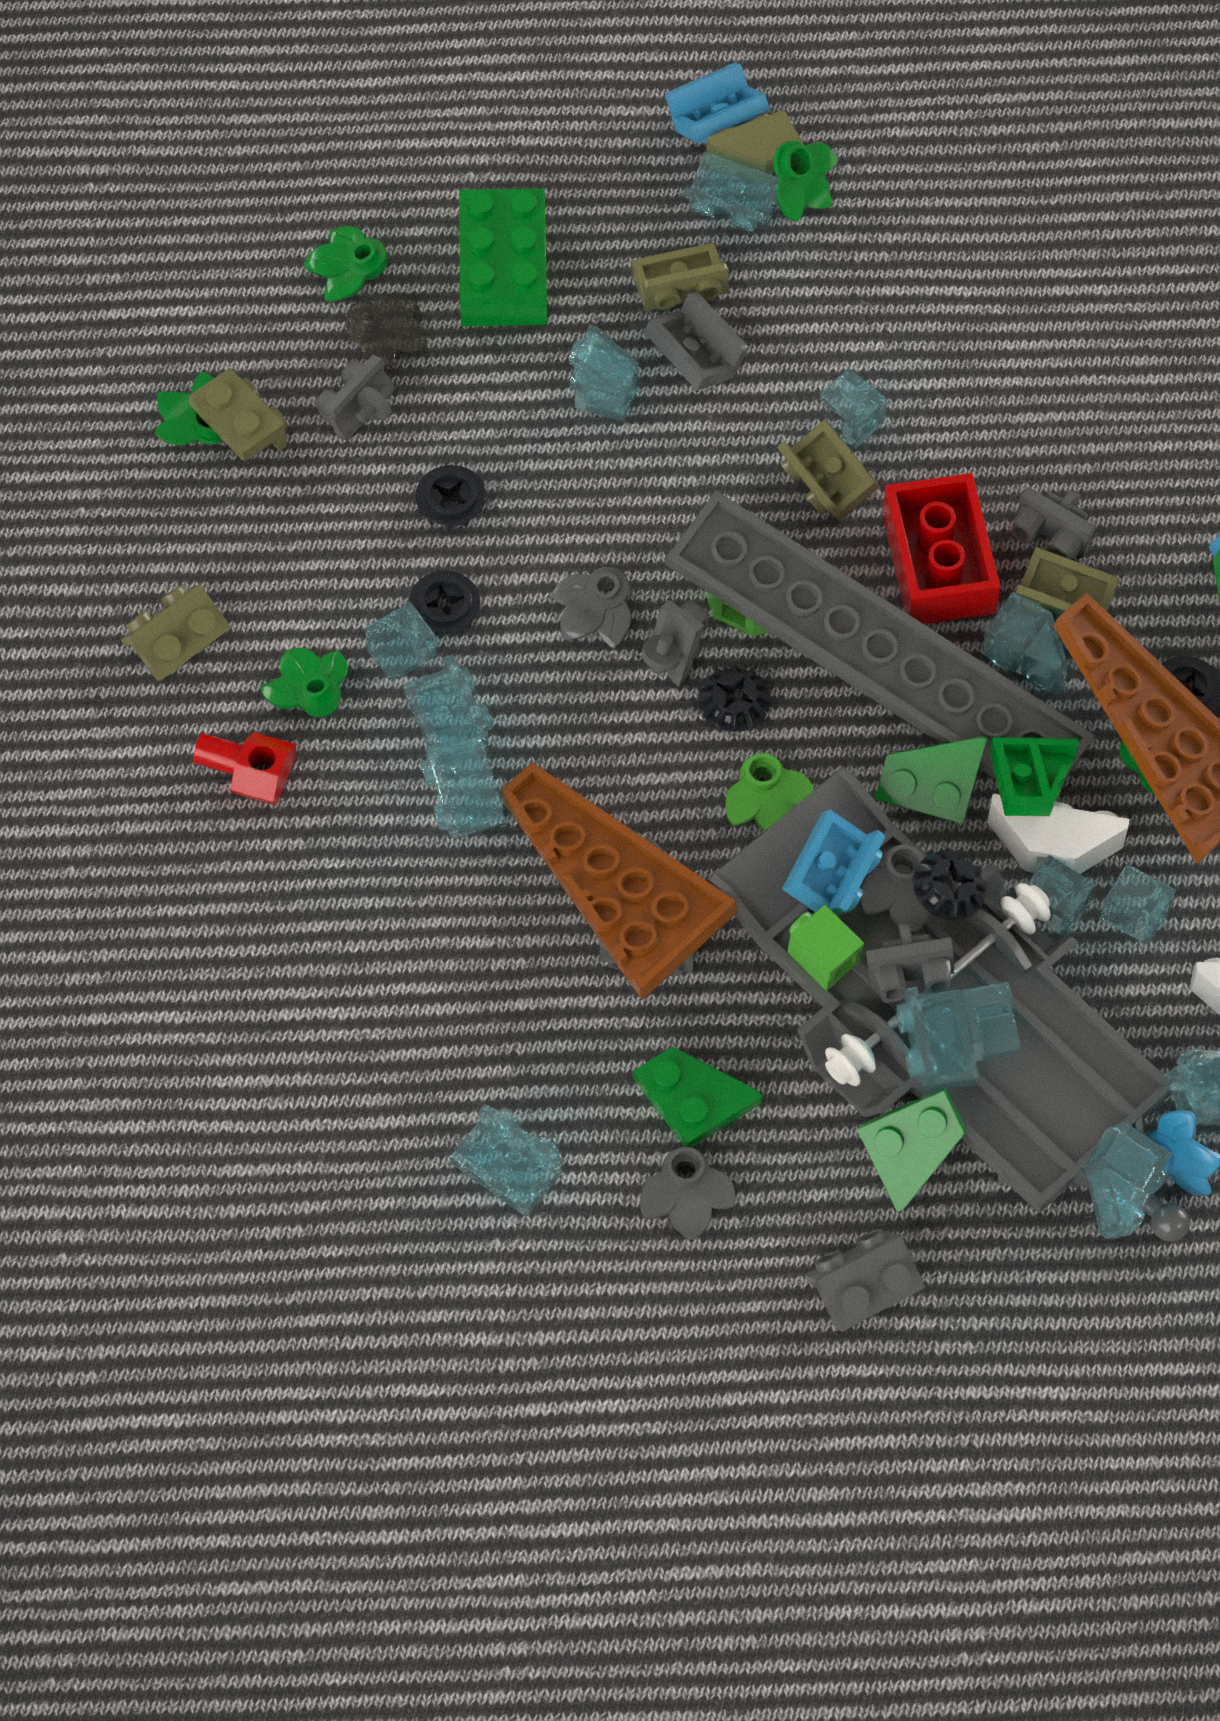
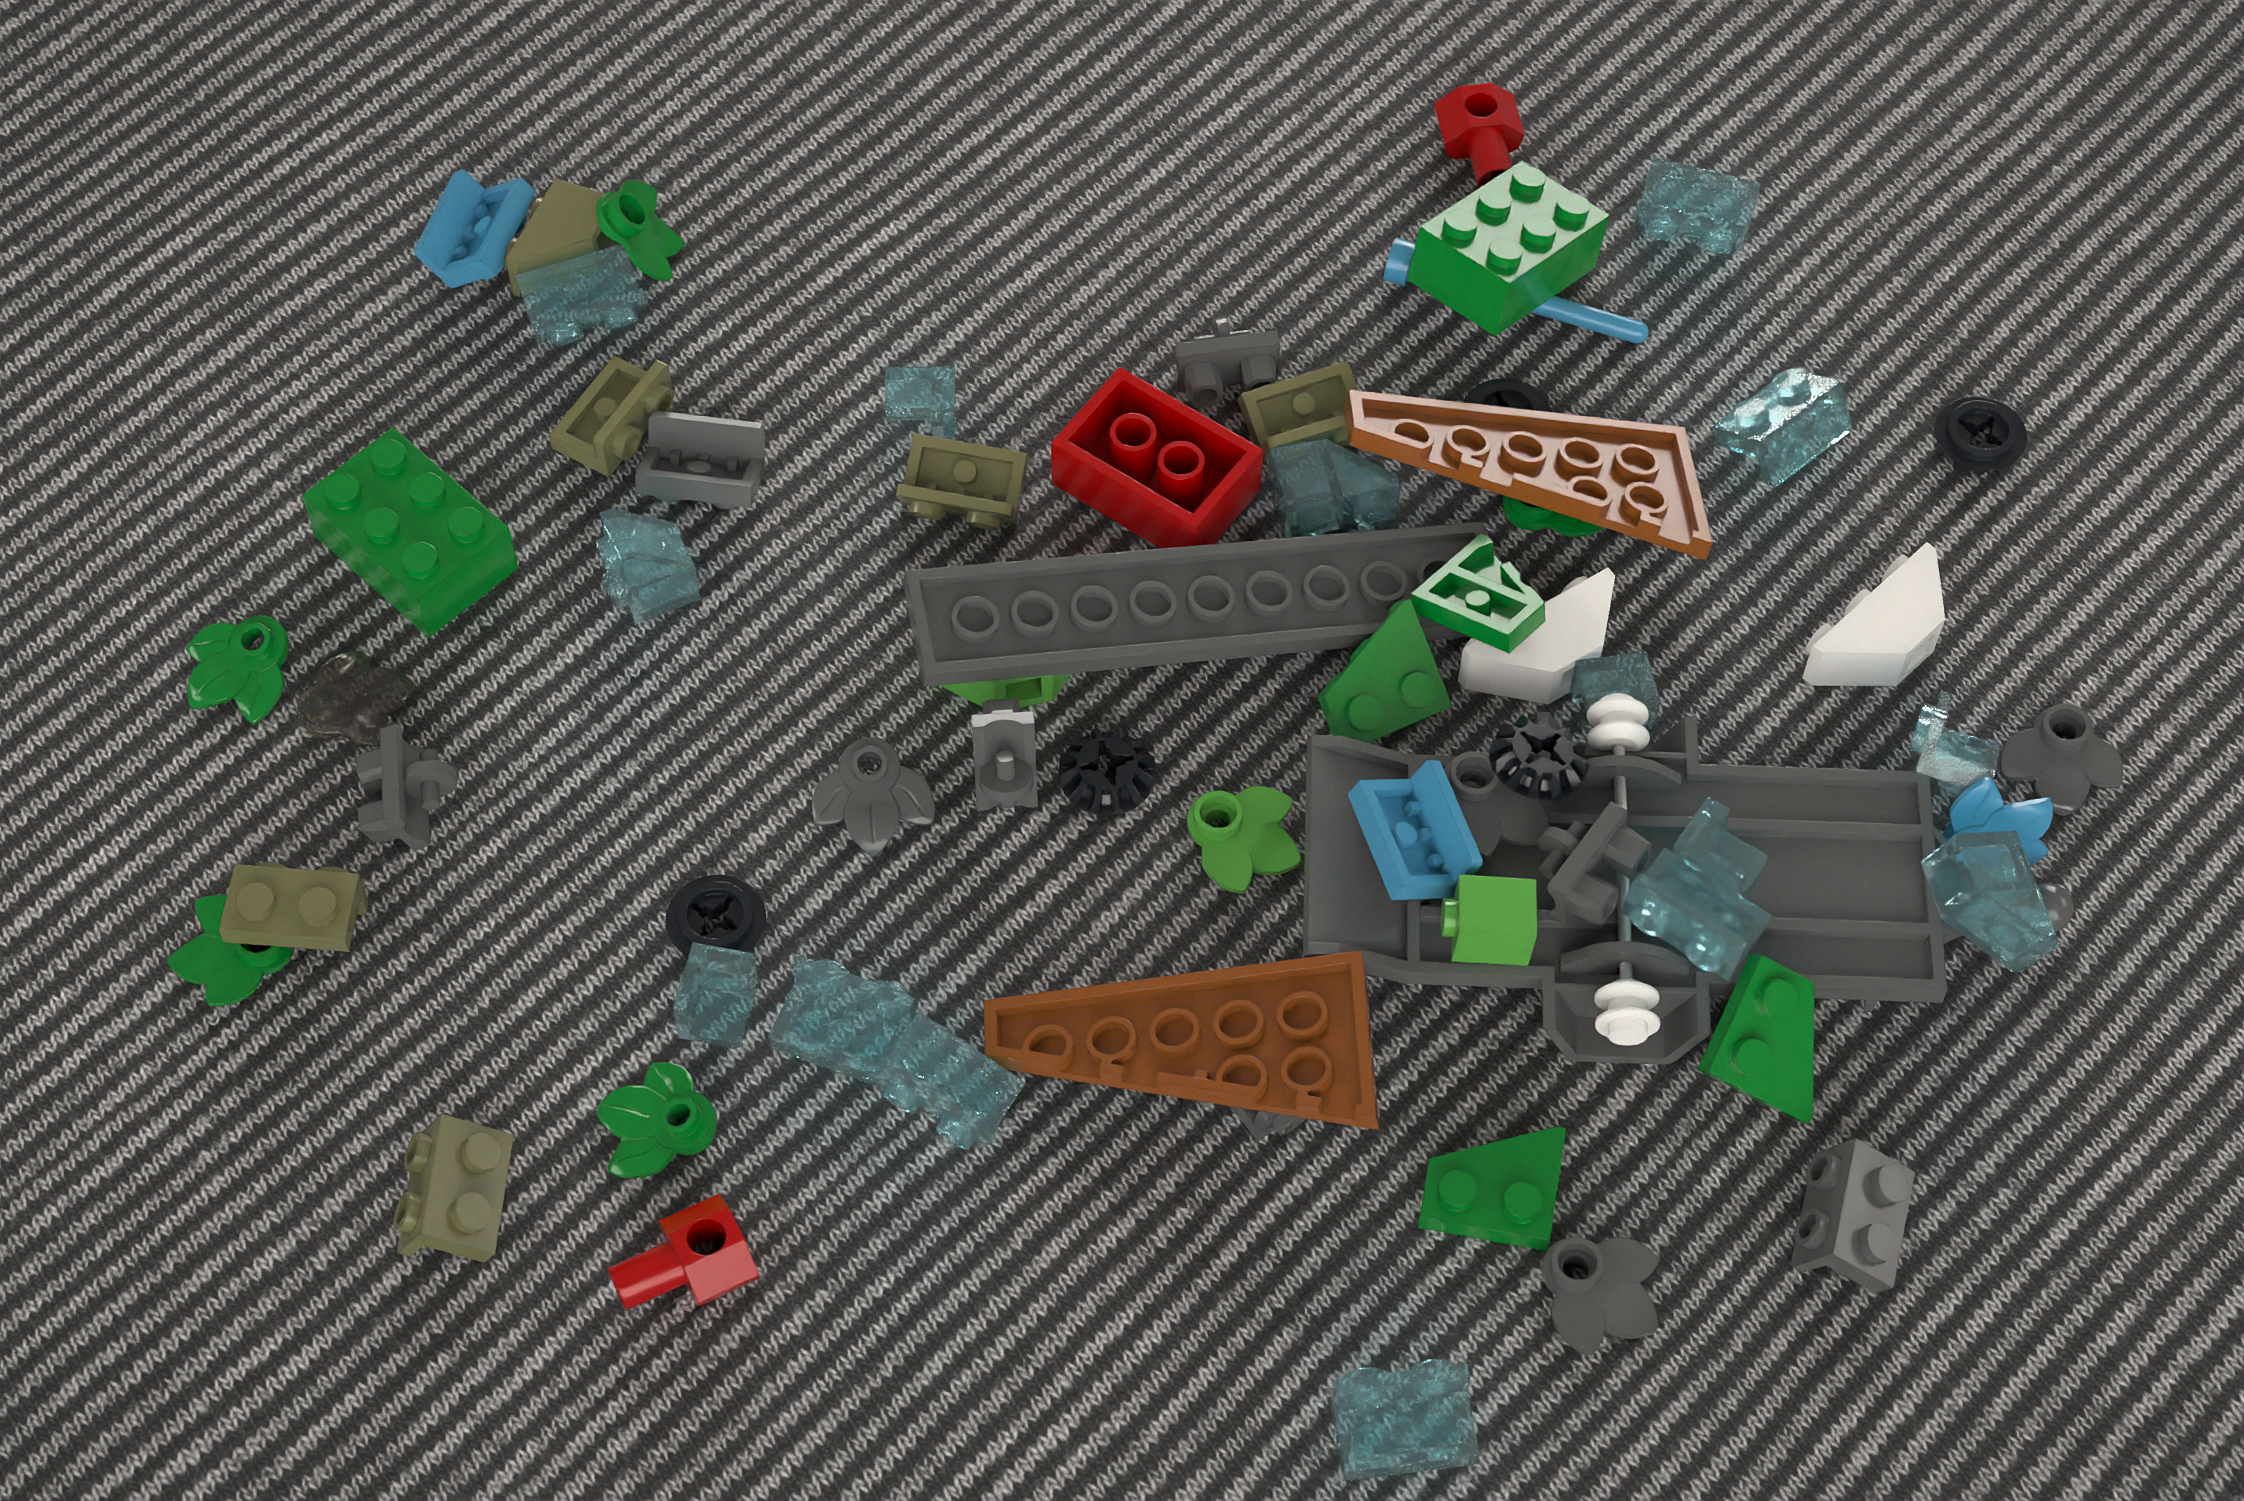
camera: 45 degrees left, 5 degrees down
(447, 481) = (582, 803): black gear -> none
(1137, 904) = (1695, 642): clear light blue panel -> none

